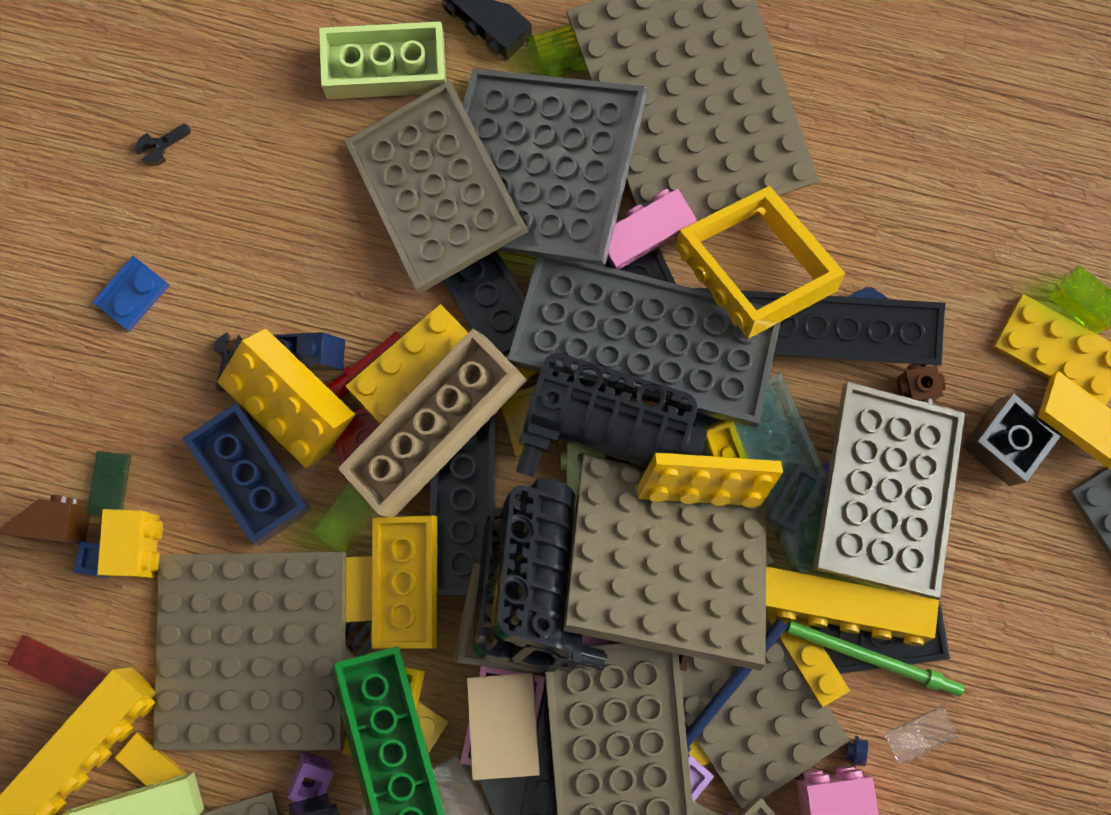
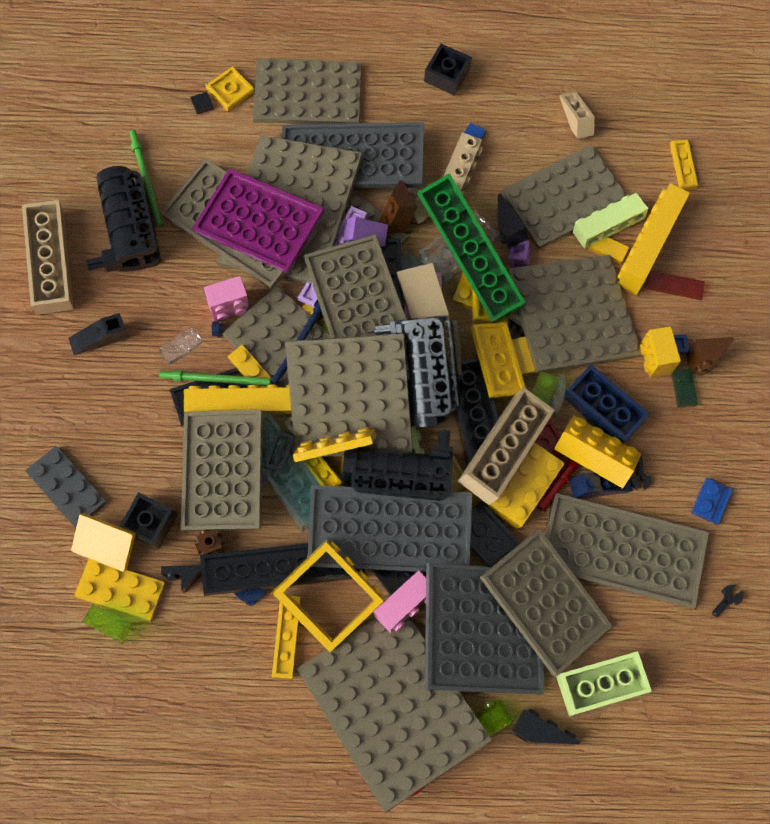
camera: 165 degrees right, 10 degrees down
(288, 245) = (628, 550): none -> dark tan plate
(322, 502) = (557, 399): none -> clear slope
(830, 213) = (285, 642): none -> yellow plate
(960, 350) = (188, 573): none -> black slope
(1056, 780) = (100, 333): none -> black slope

